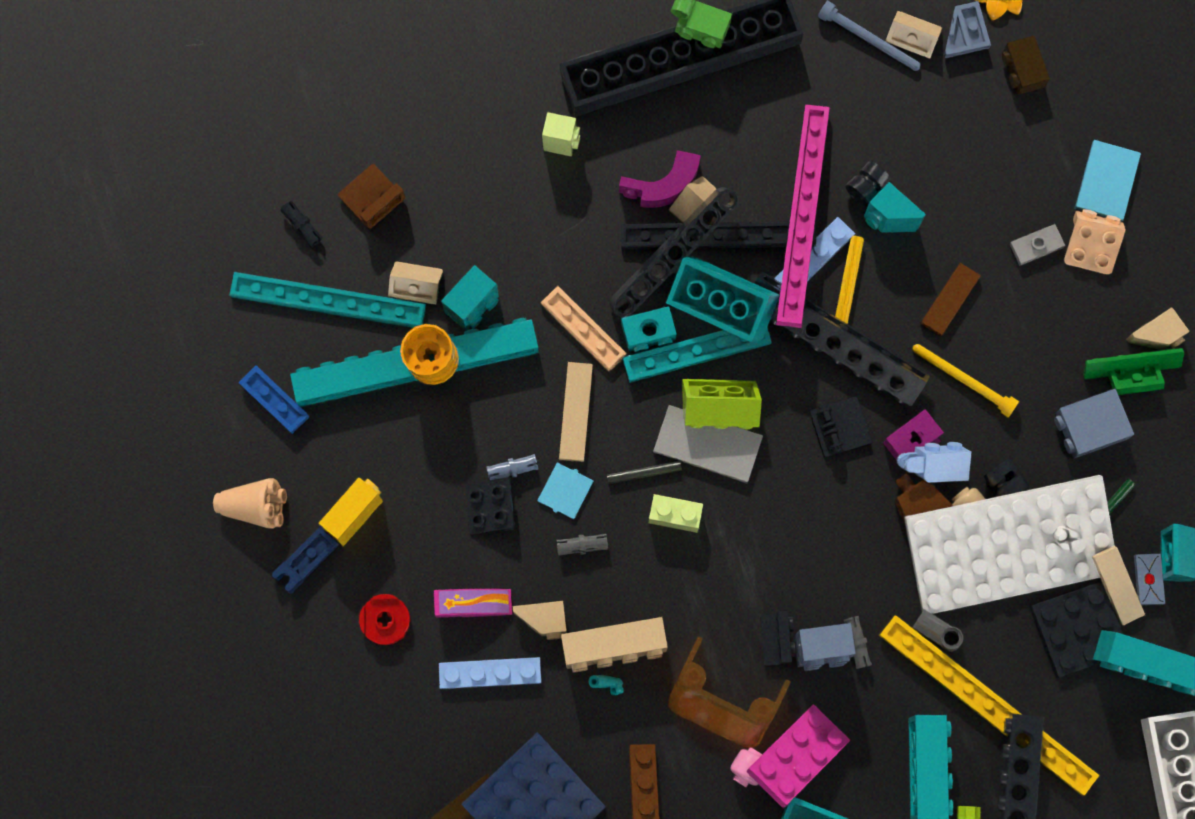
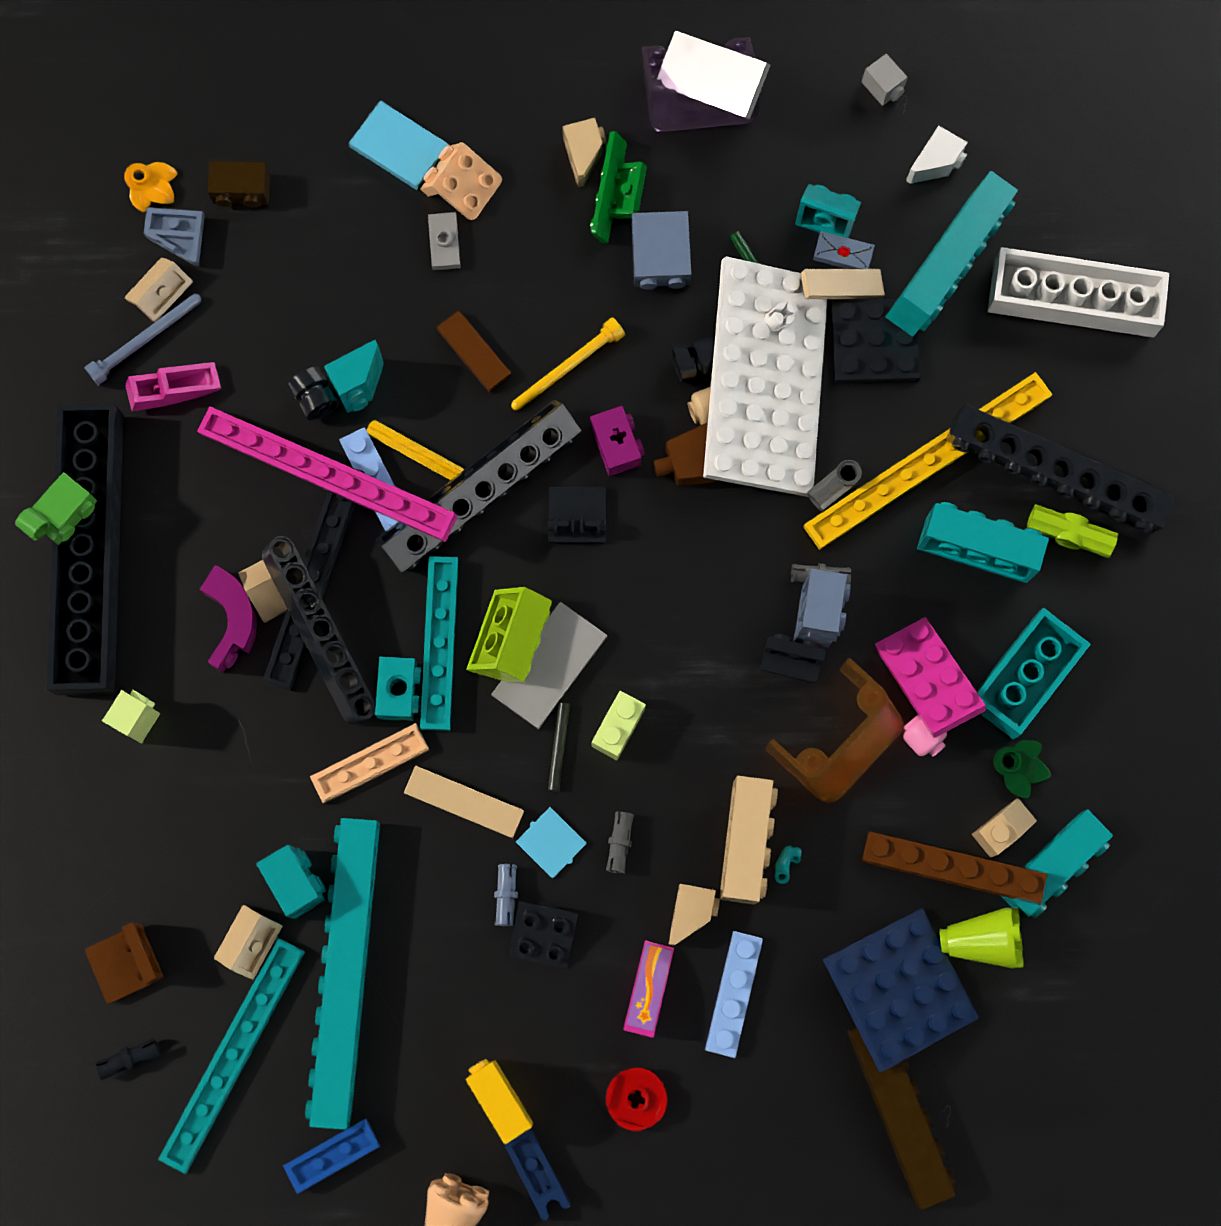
camera: 75 degrees left, 0 degrees up
(421, 343) = (329, 957): light orange wheel -> none
(722, 299) = (393, 593): teal brick -> none
(836, 73) = (172, 385): none -> dark pink slope
(938, 462) = (653, 422): light blue hinge -> none

